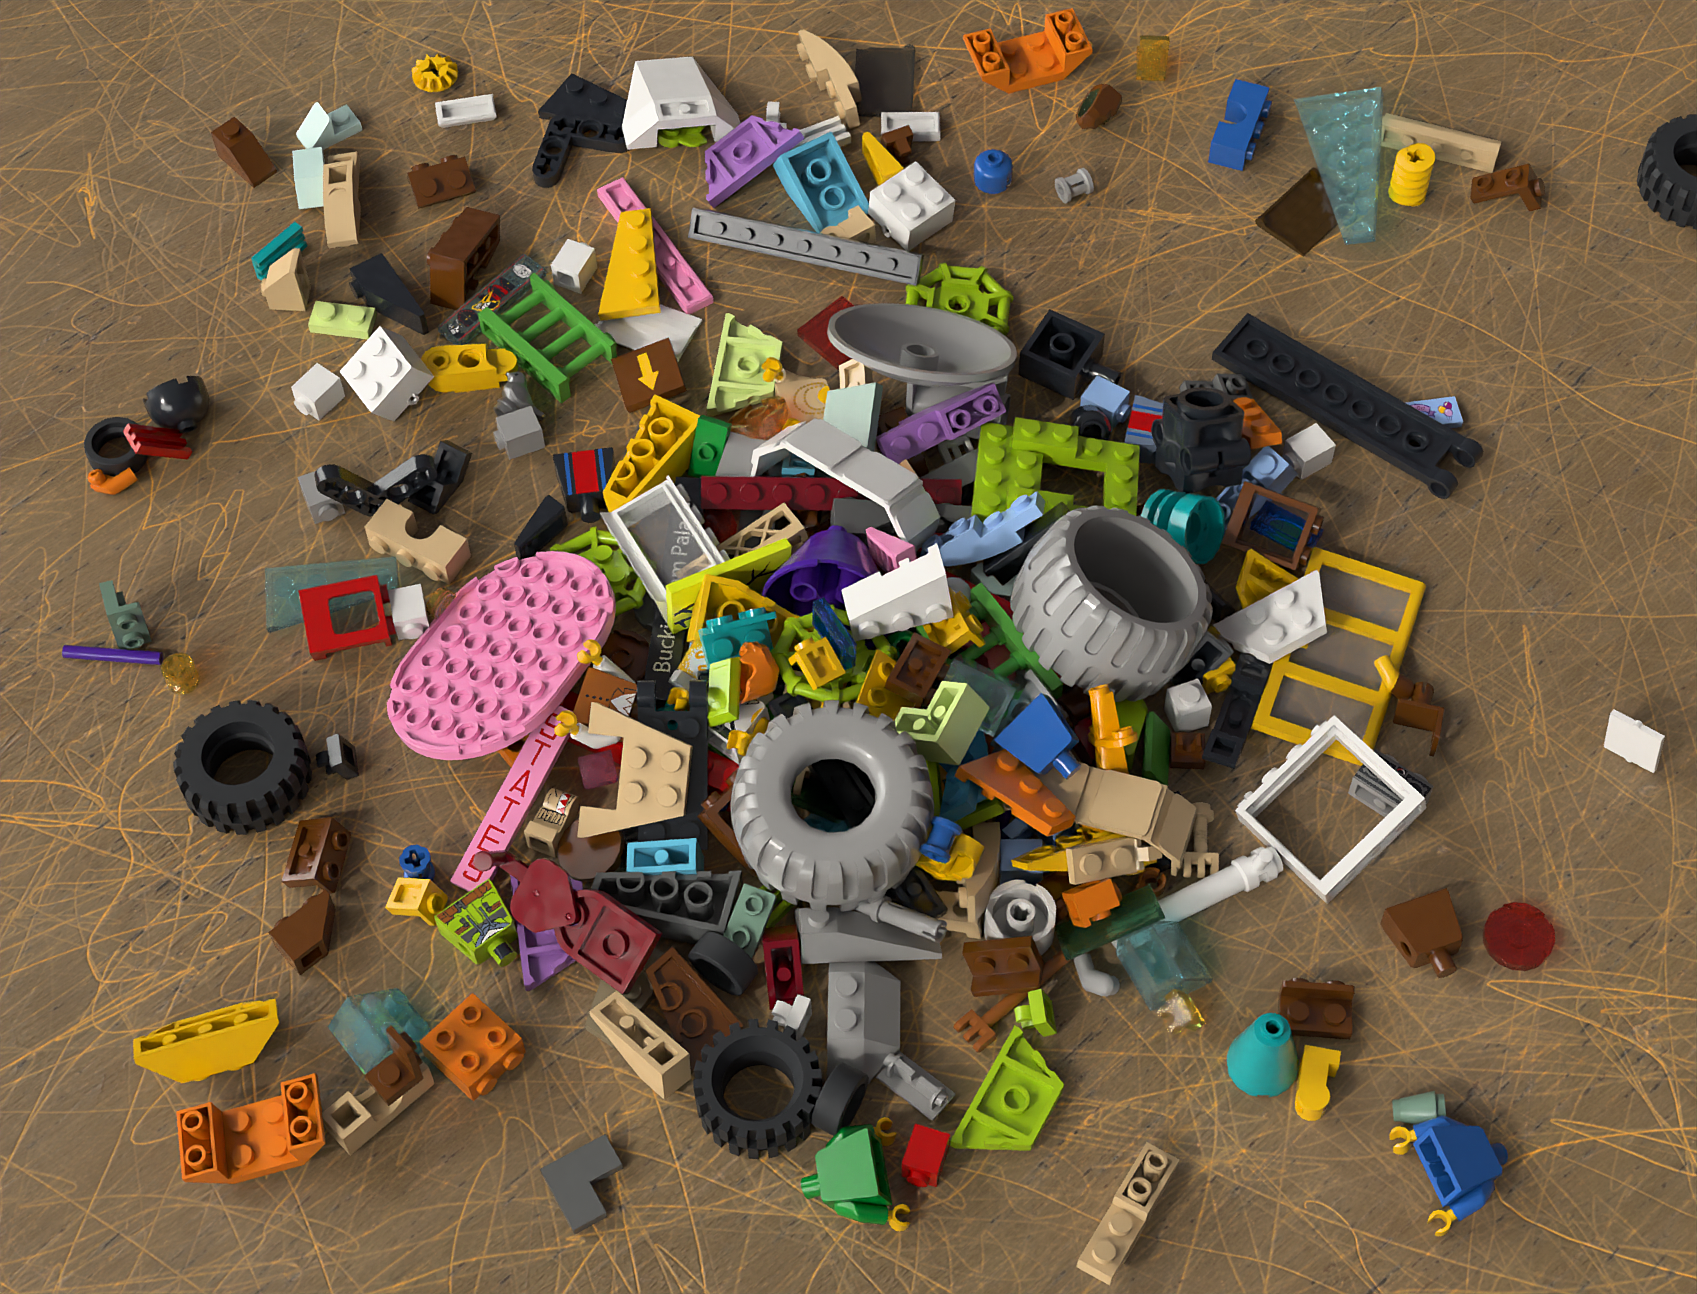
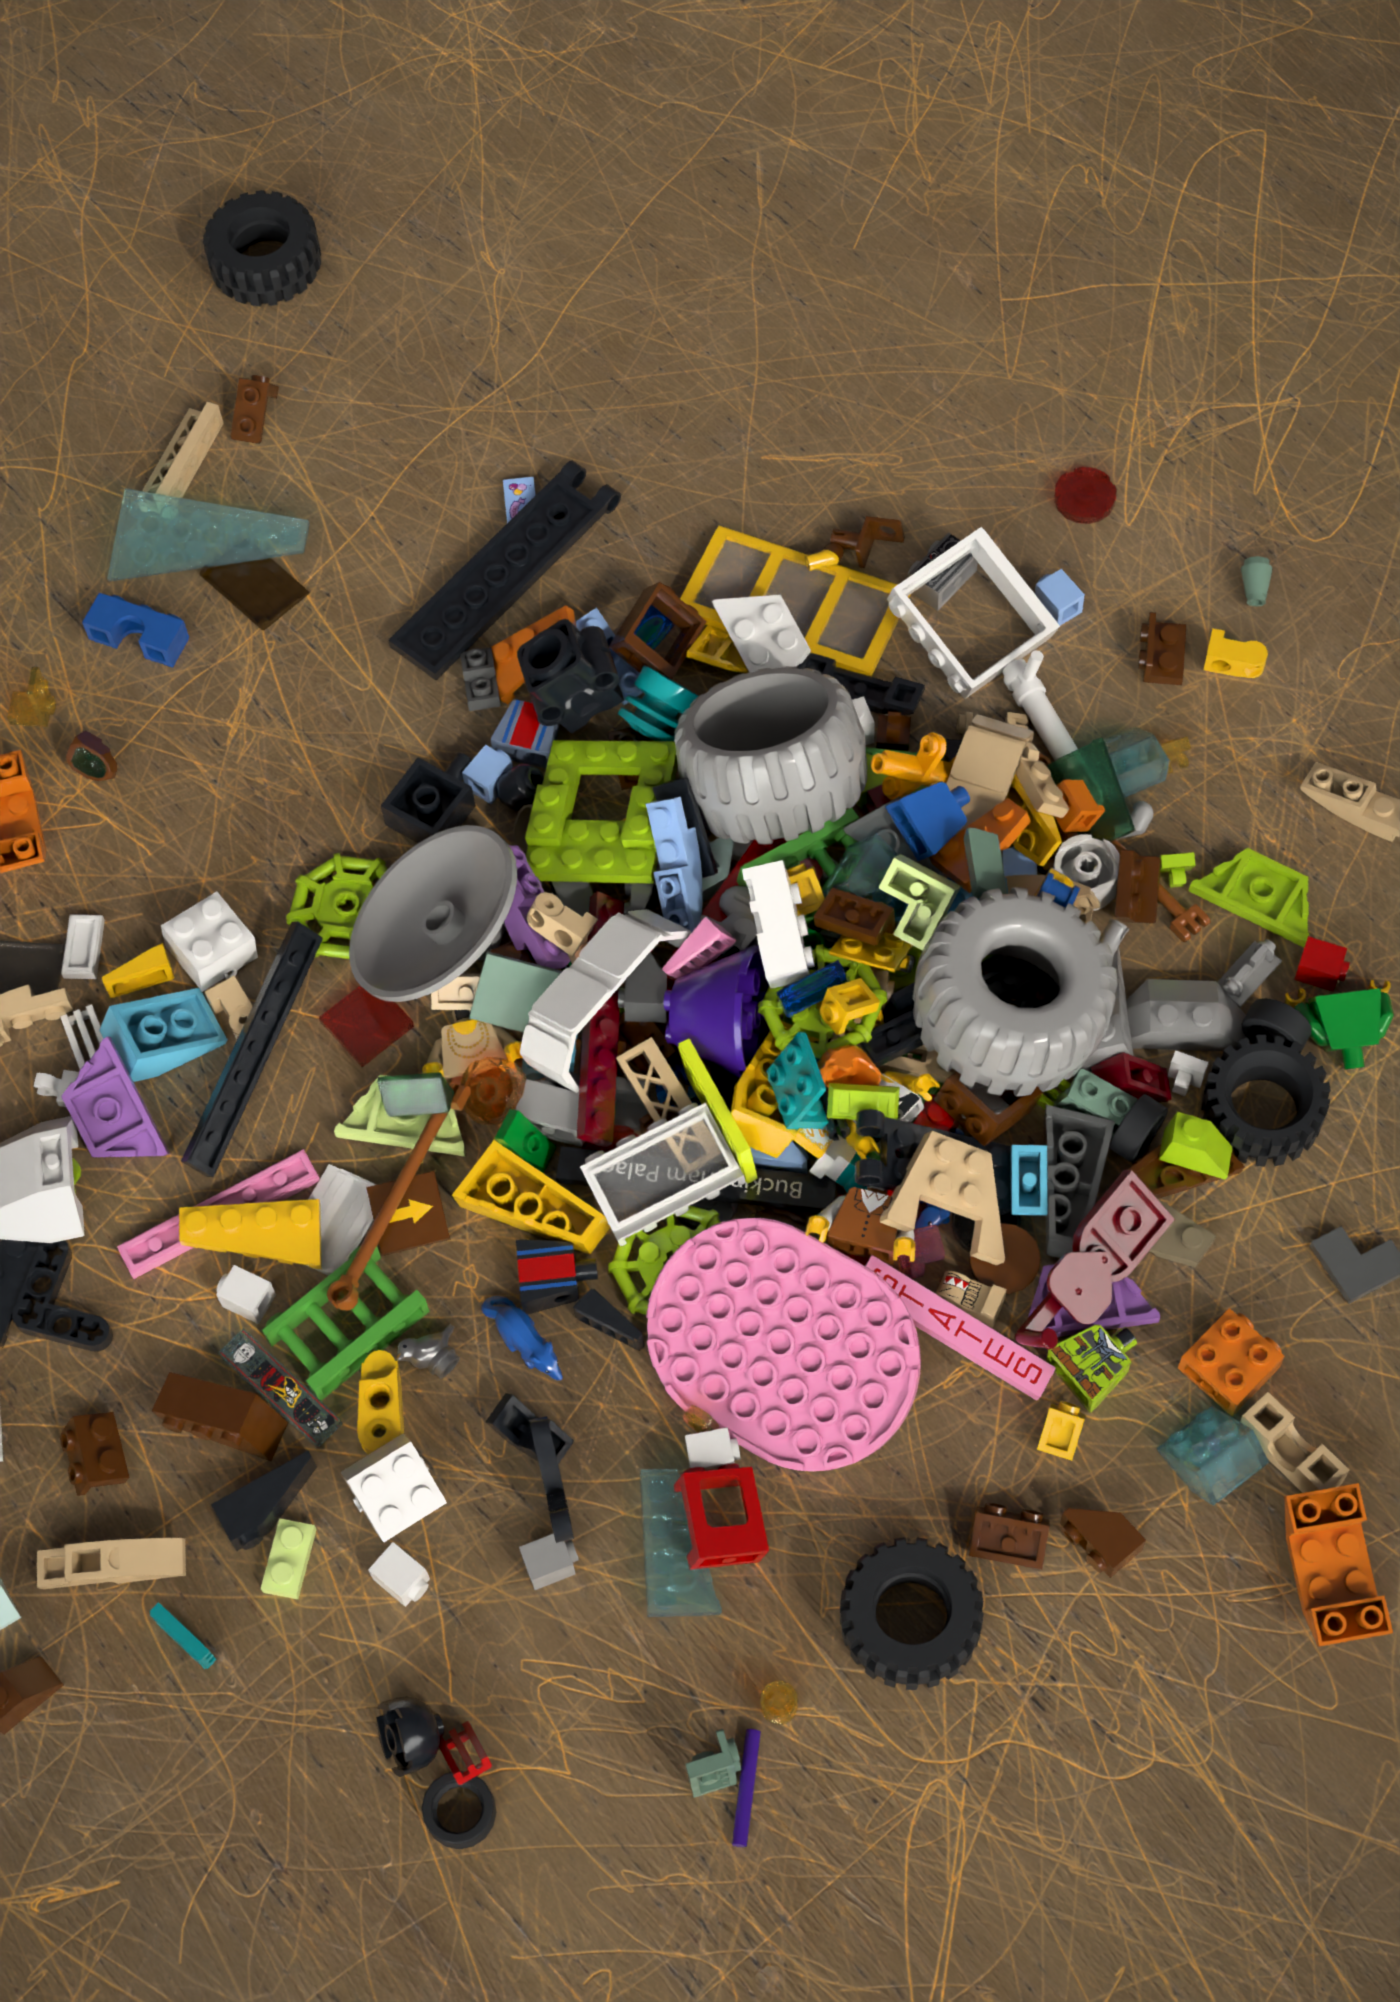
camera: 85 degrees left, 5 degrees up
(110, 484) = (508, 1814): orange arm -> none
(208, 1042) = (1228, 1622): yellow wedge -> none
(287, 283) = (238, 1618): tan slope -> none
(309, 177) = (68, 1604): light aqua slope -> none
(339, 757) = (893, 1517): black tile -> none
(399, 1070) = (1280, 1414): reddish brown bracket -> none
(422, 858) = (1019, 1438): blue bush -> none
(437, 556) = (605, 1478): tan arch -> none
(519, 433) = (477, 1346): light grey brick -> none
(531, 464) = (520, 1334): none -> blue animal
(643, 1045) = (1224, 1201): tan slope -> none
(698, 1012) = (1196, 1146): none -> lime slope
(750, 359) = (415, 1094): none -> clear green slope
(753, 390) = (344, 1292): none -> dark orange hinge
(899, 143) = (115, 952): reddish brown tile -> none
(914, 441) = (559, 923): none -> tan leg
(979, 779) = (984, 861): none -> sand green slope
(993, 171) = (170, 860): blue head -> none
(1083, 181) = (196, 787): light grey bush -> none
(1264, 1057) = (1213, 688): teal cone -> none
(1309, 451) = (561, 593): white brick -> none
(1368, 901) = (1060, 596): none -> light blue brick
(1411, 174) = (236, 477): yellow piece -> none
(1425, 931) = (1088, 556): reddish brown torso -> none
(1457, 1163) = (1310, 555): blue torso -> none
(1633, 741) = (904, 379): white piece -> none

